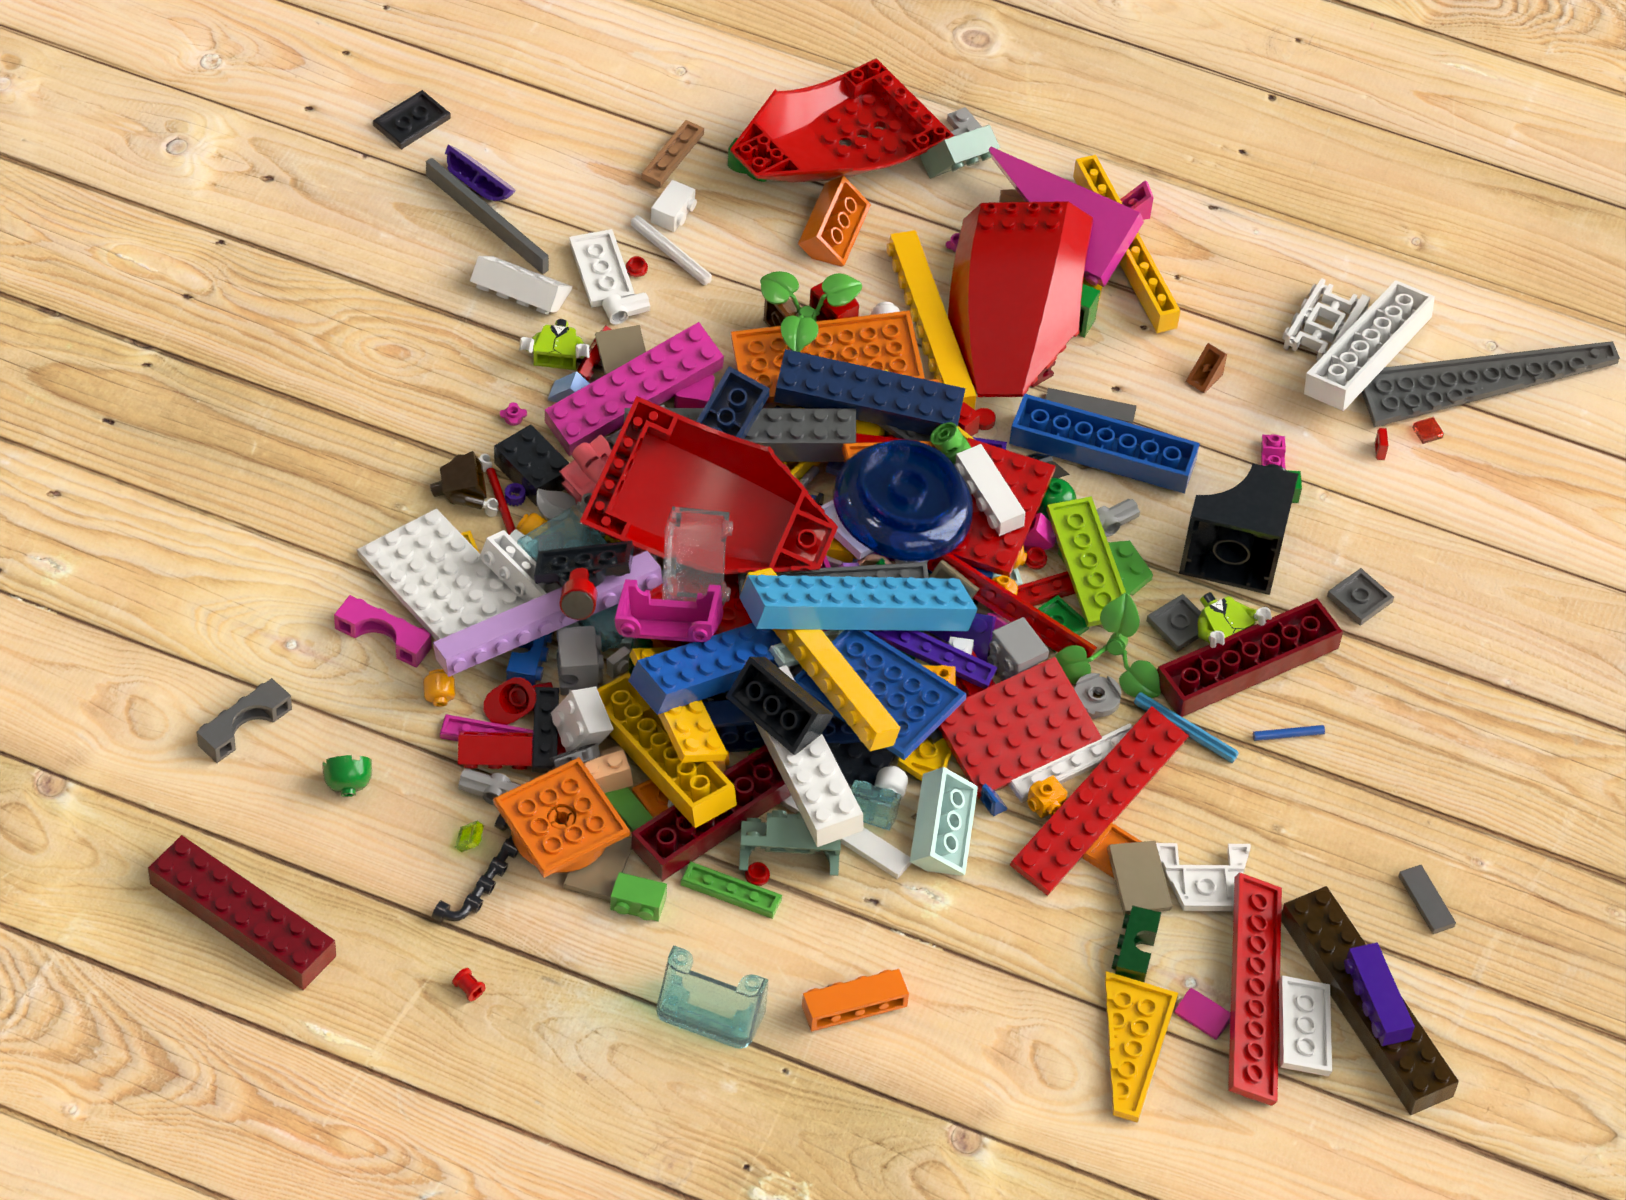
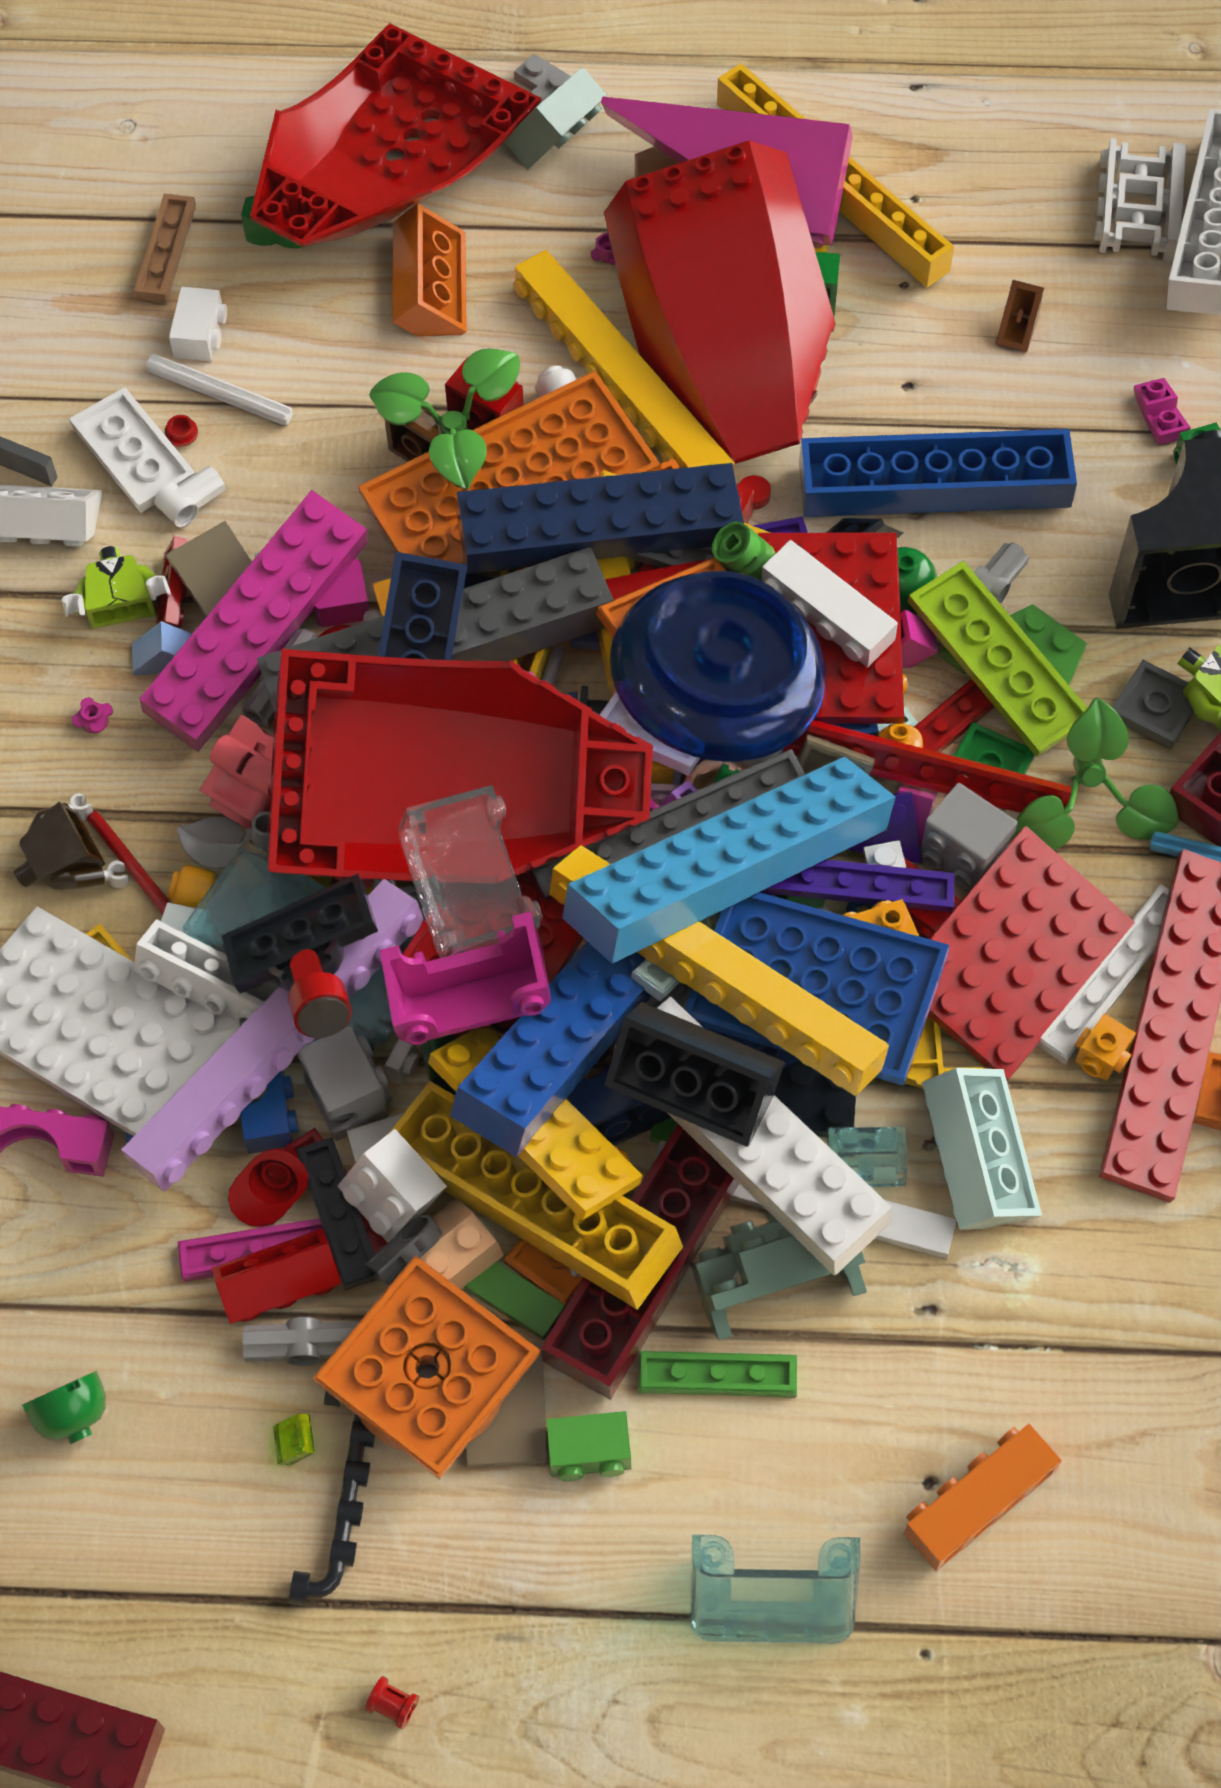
camera: 15 degrees left, 10 degrees up
(439, 688) = (151, 1205): light orange head -> none
(513, 499) = (143, 850): dark purple bush -> none
(530, 462) = (150, 785): black brick -> none
(757, 874) = (747, 1333): red plate -> none
(892, 778) = (877, 1107): white head -> none
(992, 801) = (1027, 1080): blue slope -> none
(1036, 558) = (919, 676): red plate -> none
(1107, 687) = (1102, 839): light grey plate -> none
(1108, 408) = (892, 421): dark grey tile -> none
(1140, 199) = (824, 104): dark pink slope -> none

